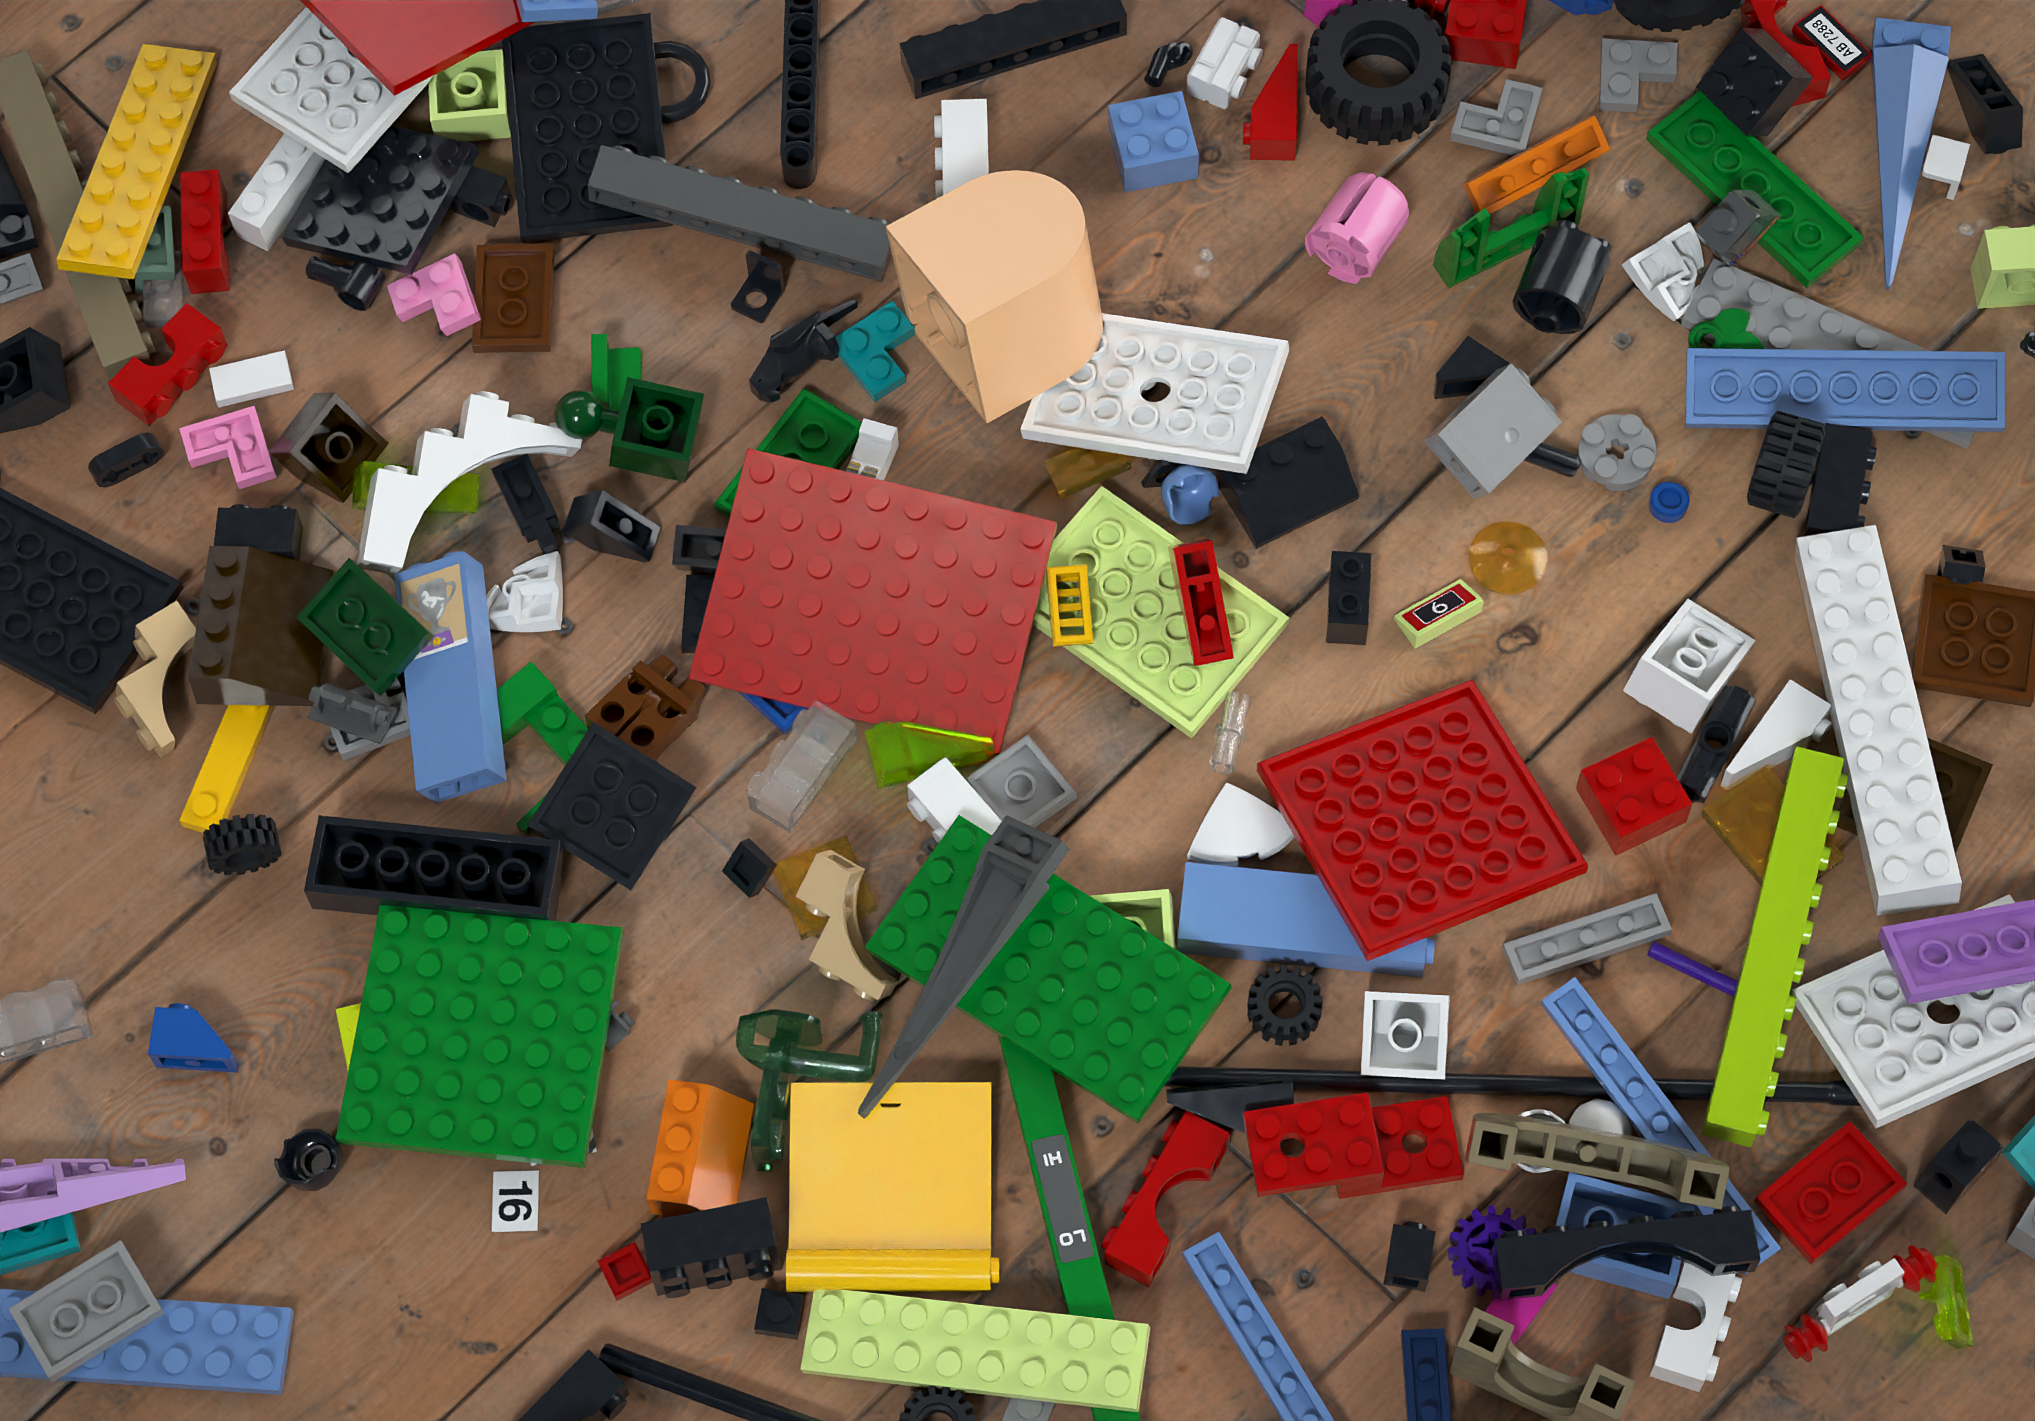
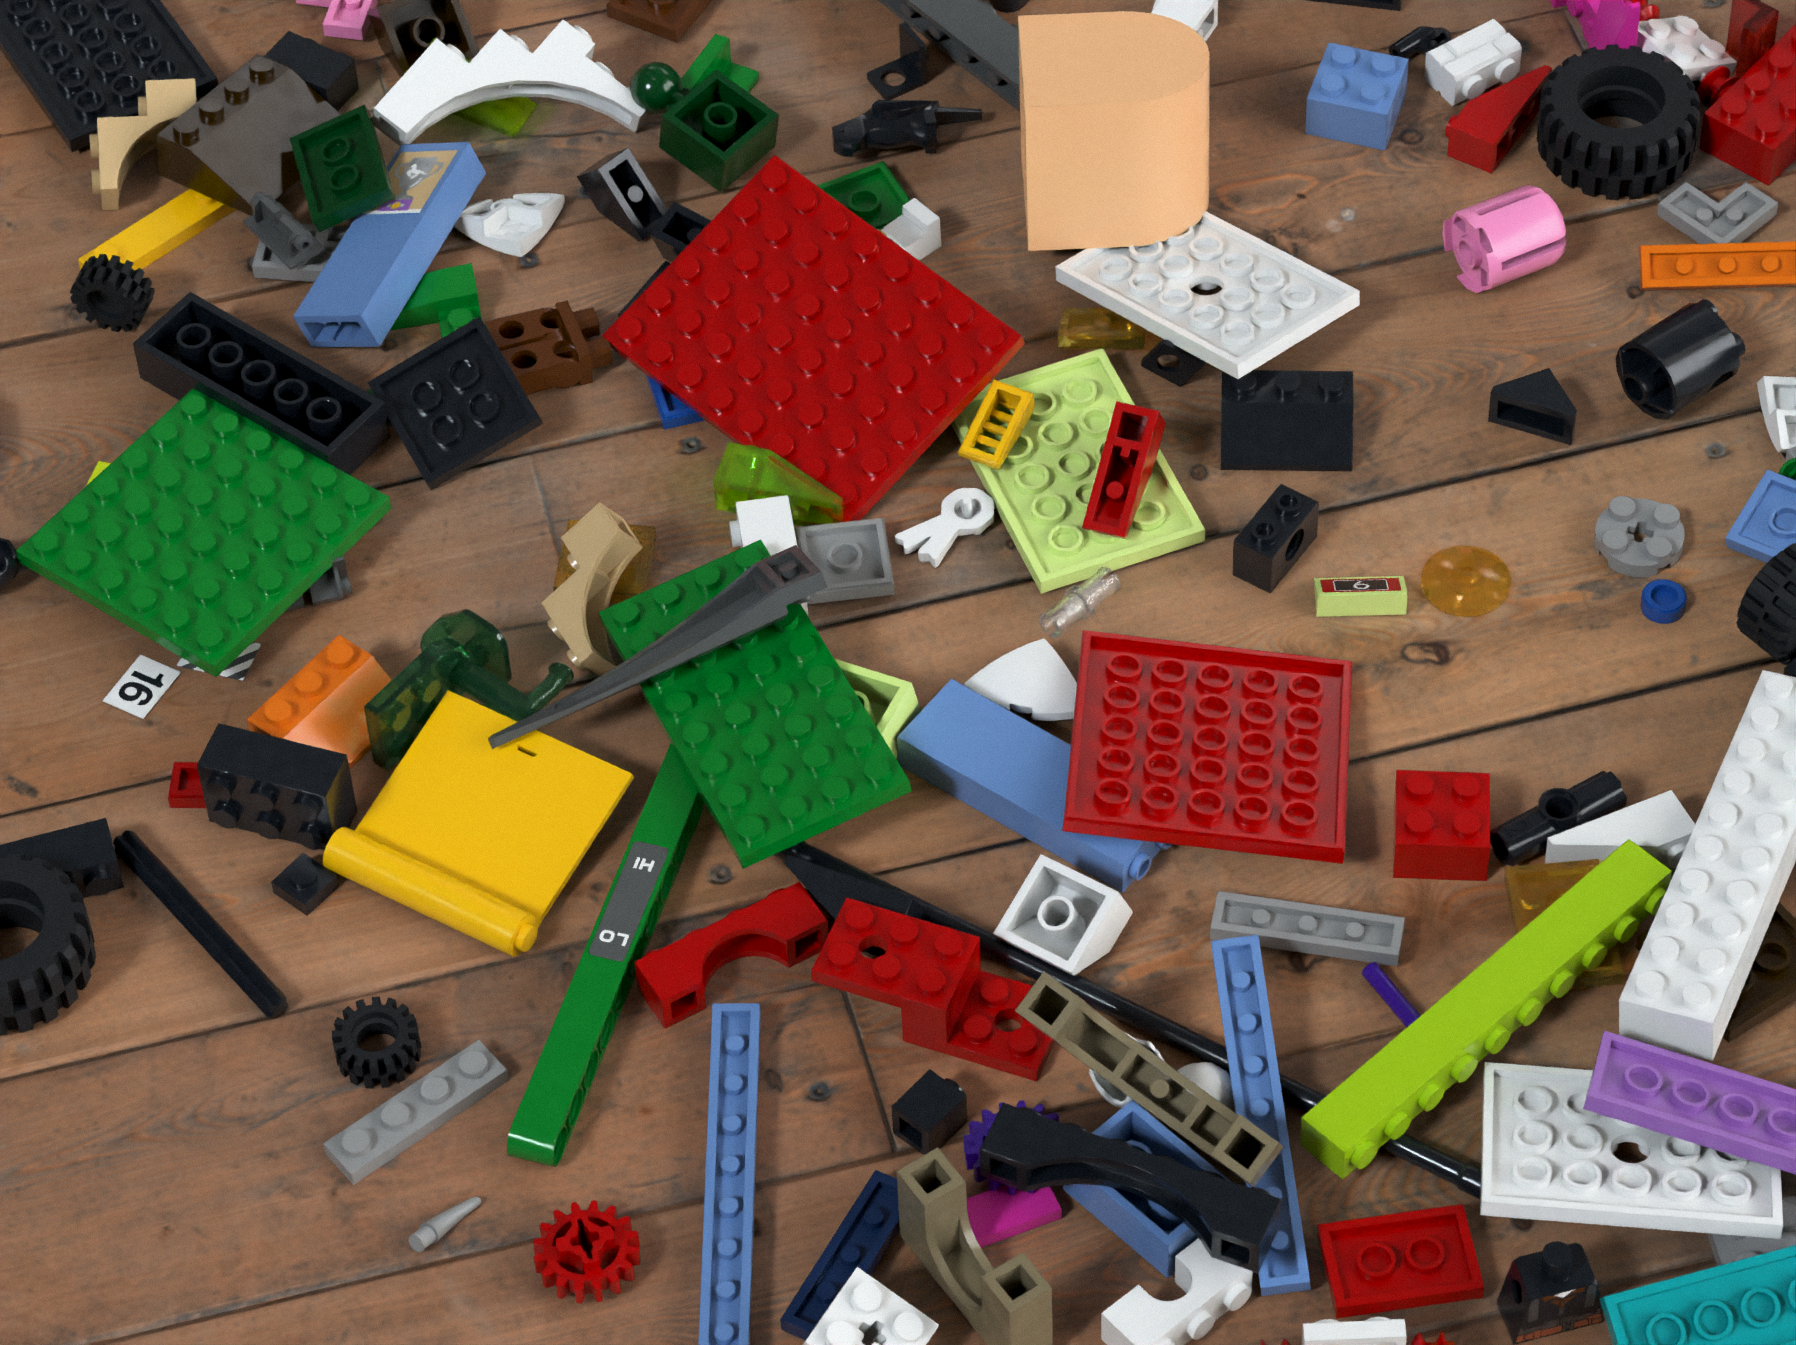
camera: 30 degrees right, 15 degrees down
(528, 502) = (566, 146): black hinge -> none
(749, 868) = (546, 512): black plate -> none
(801, 765) = (655, 453): clear brick -> none
(866, 349) = (967, 153): teal plate -> none
(976, 1349) = (459, 989): yellowish green plate -> none
(1086, 694) = (962, 514): none -> white piece
(1188, 493) = (1182, 387): medium blue hair -> none
(1279, 1028) = (965, 869): black tyre -> none
(1474, 249) = (1599, 312): green wedge -> none
(1497, 431) = (1521, 456): light grey piece -> none
(1688, 665) = (1577, 735): white slope -> none

